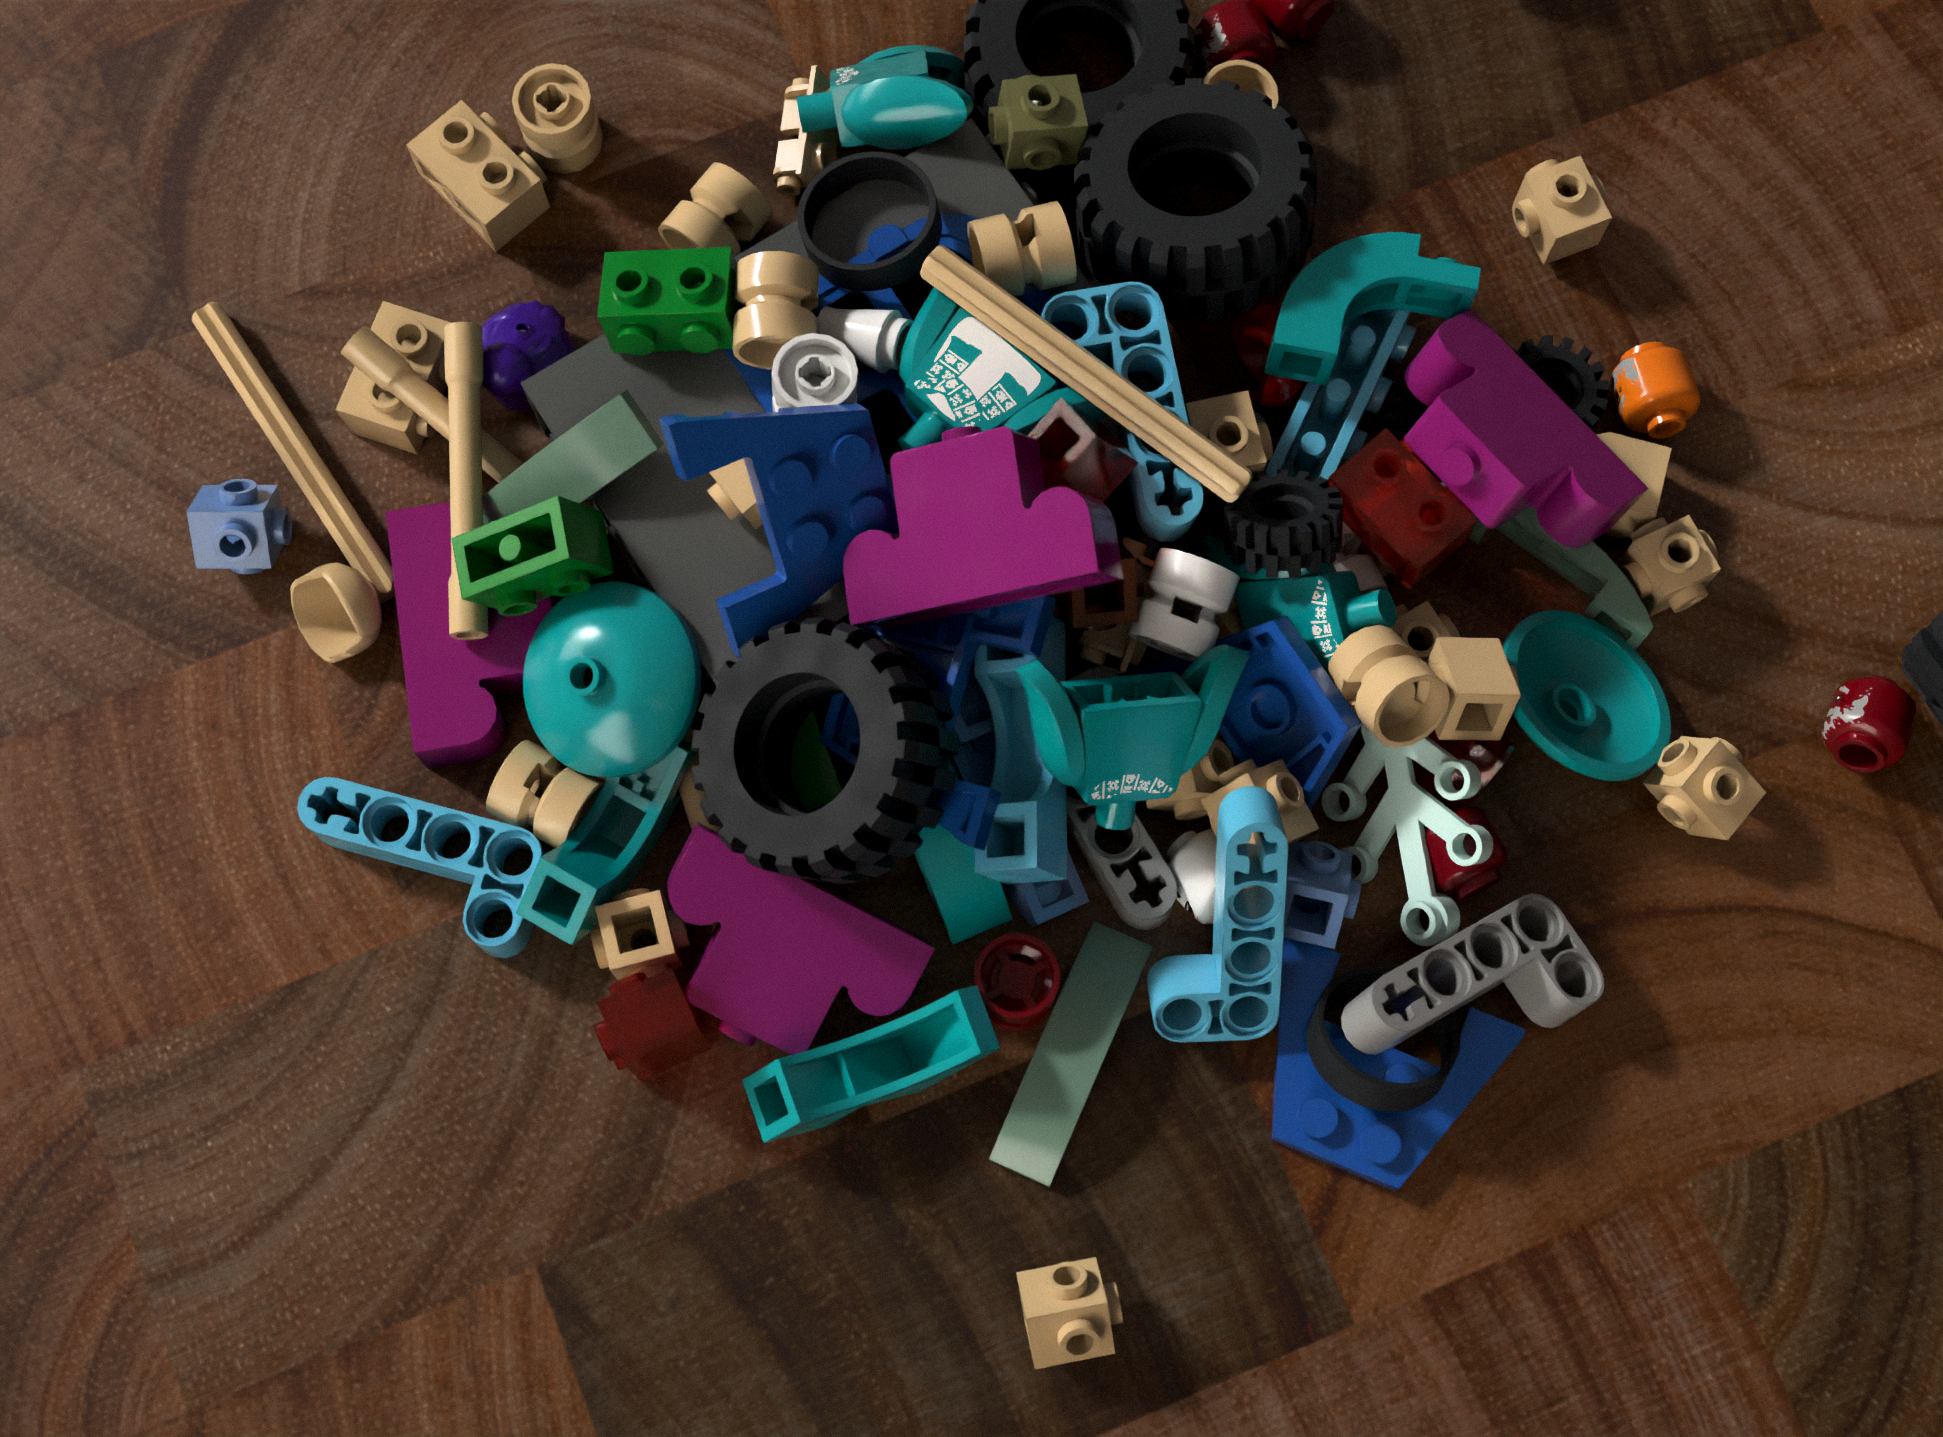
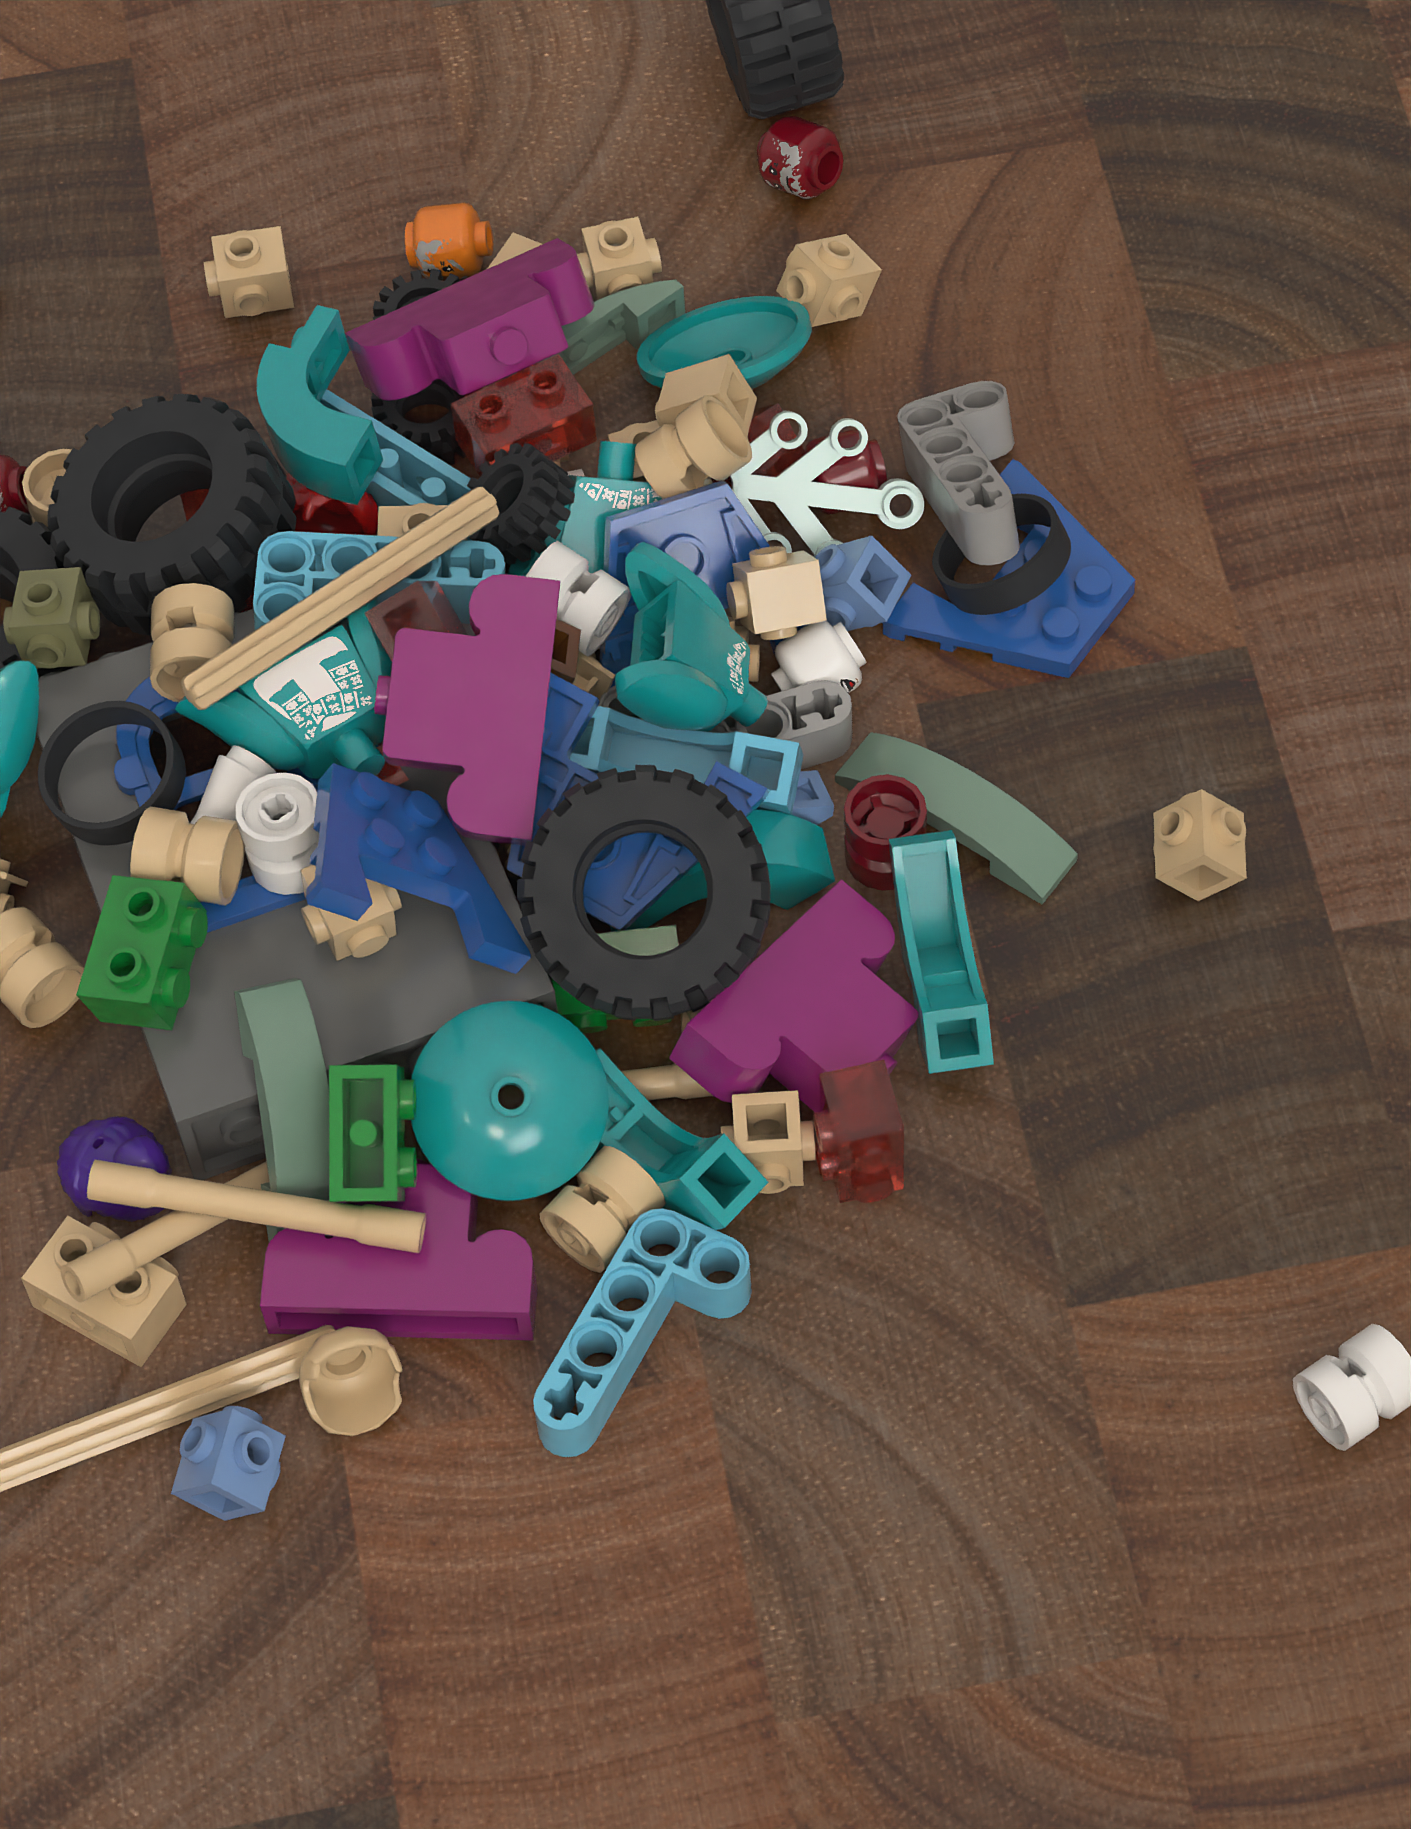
camera: 75 degrees left, 15 degrees down
(1239, 984) = (886, 620): medium azure beam -> none

